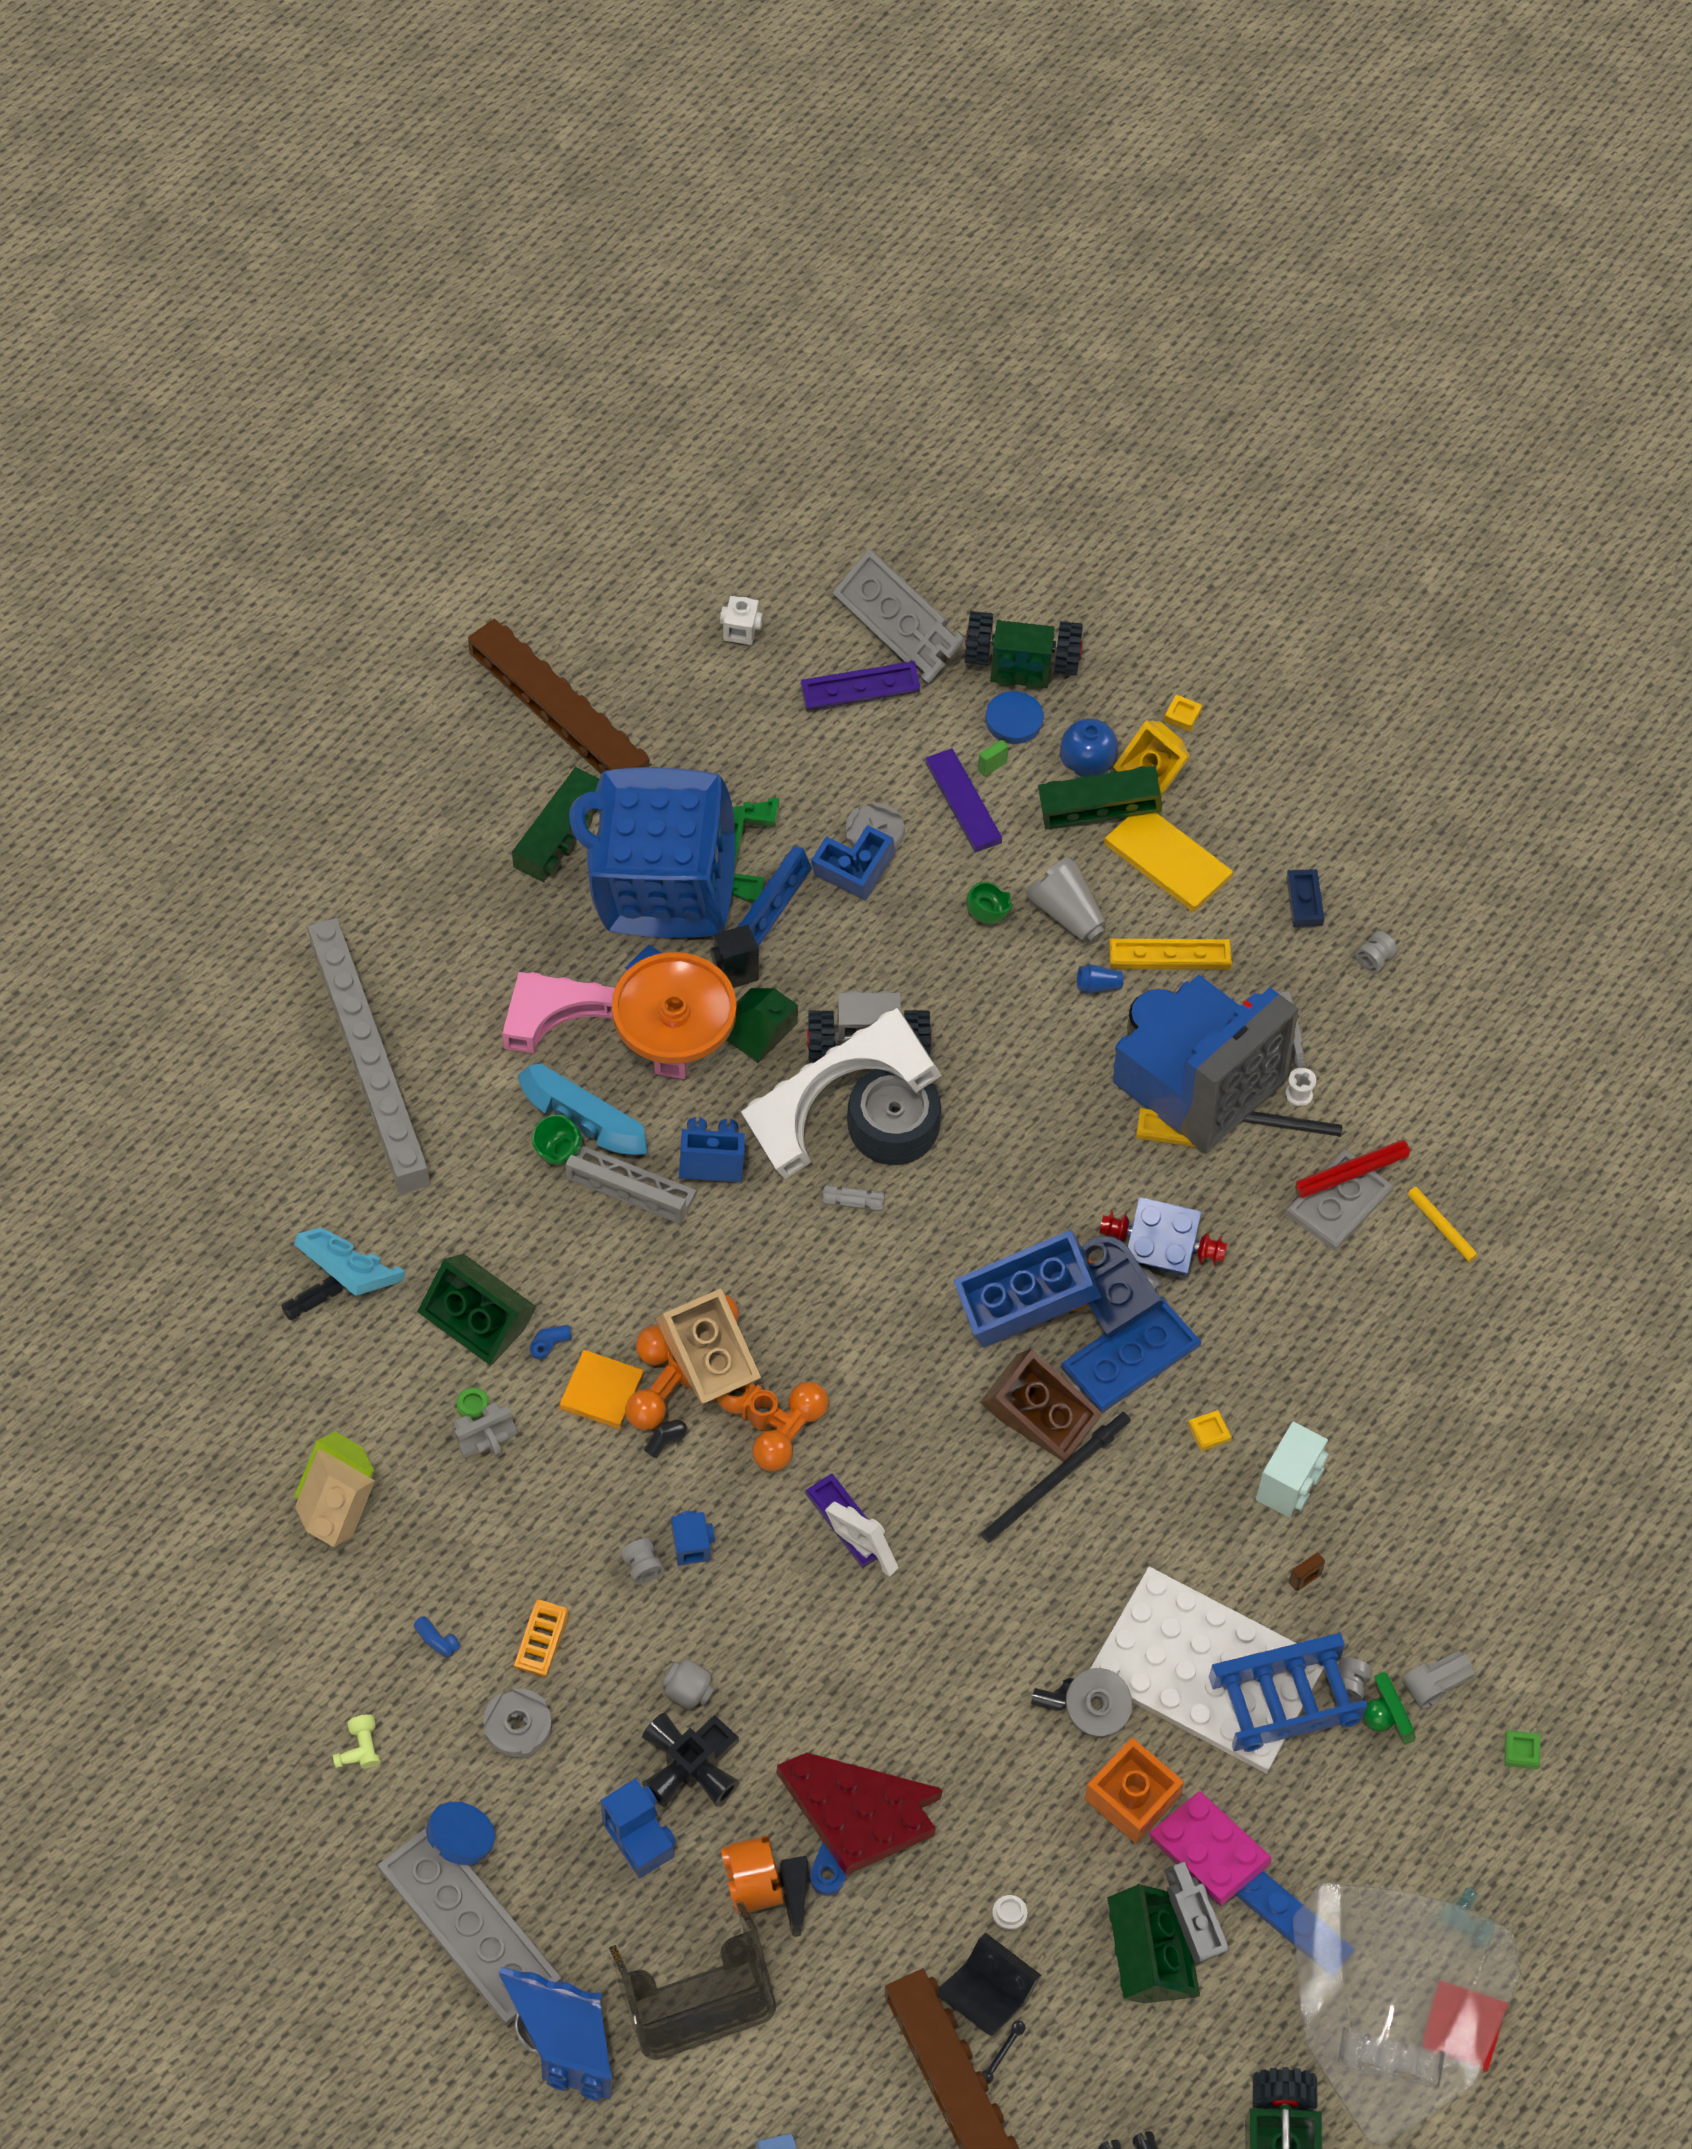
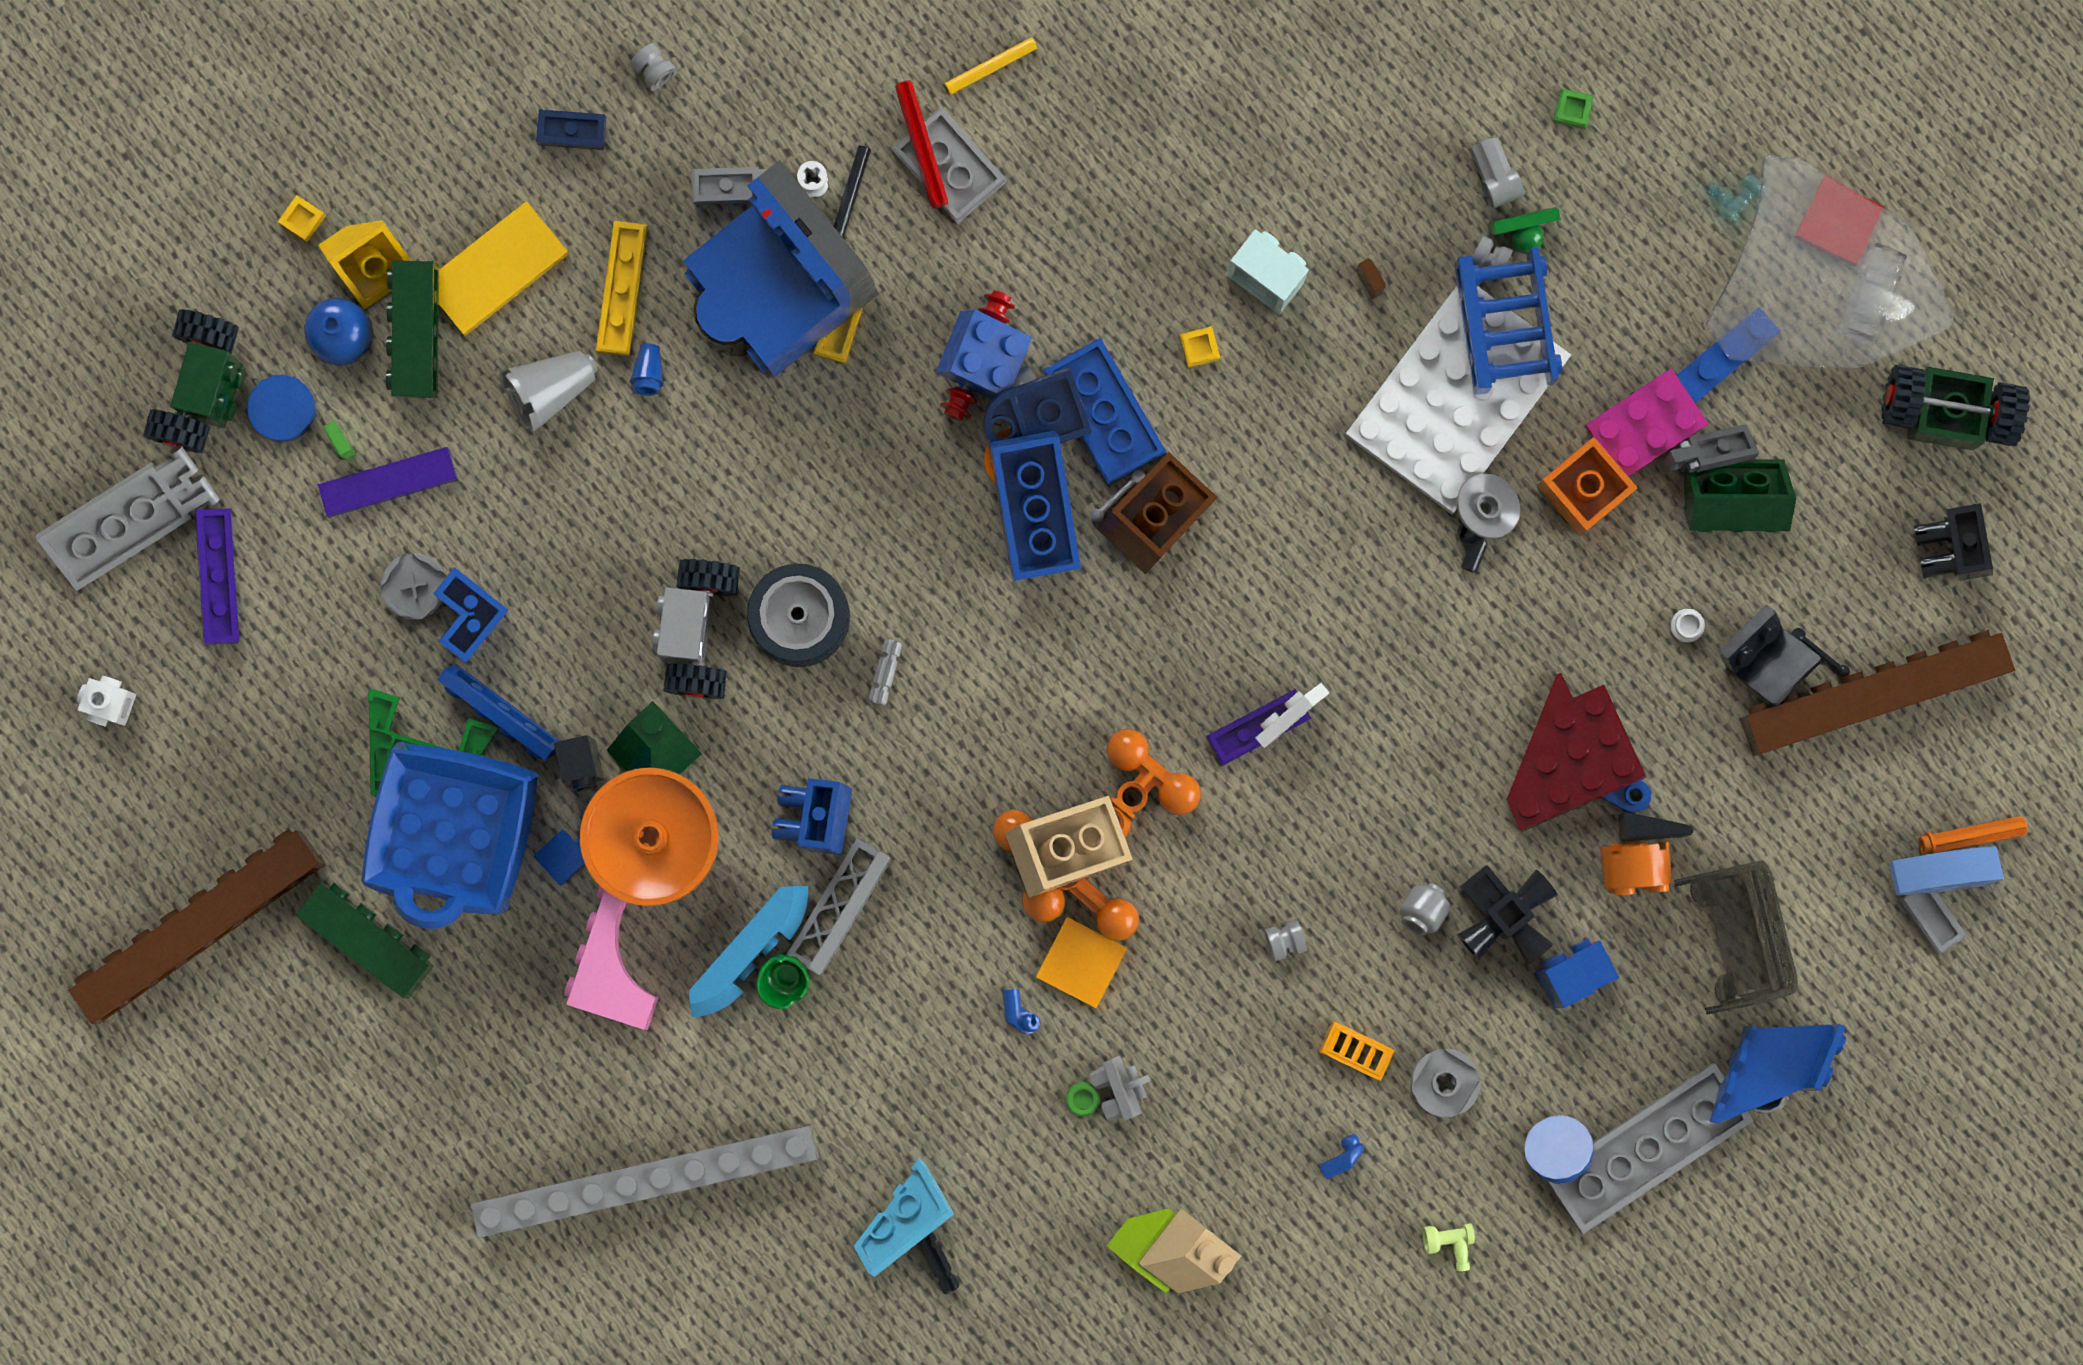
camera: 85 degrees left, 25 degrees up
(475, 1308) = (974, 1086): dark green slope -> none
(664, 1434) = (1145, 902): black arm -> none
(692, 1537) = (1264, 887): blue brick -> none
(781, 1114) = (788, 738): white arch -> none
(988, 903) = (536, 474): green hair -> none
(1100, 1439) = (1197, 457): black bar -> none

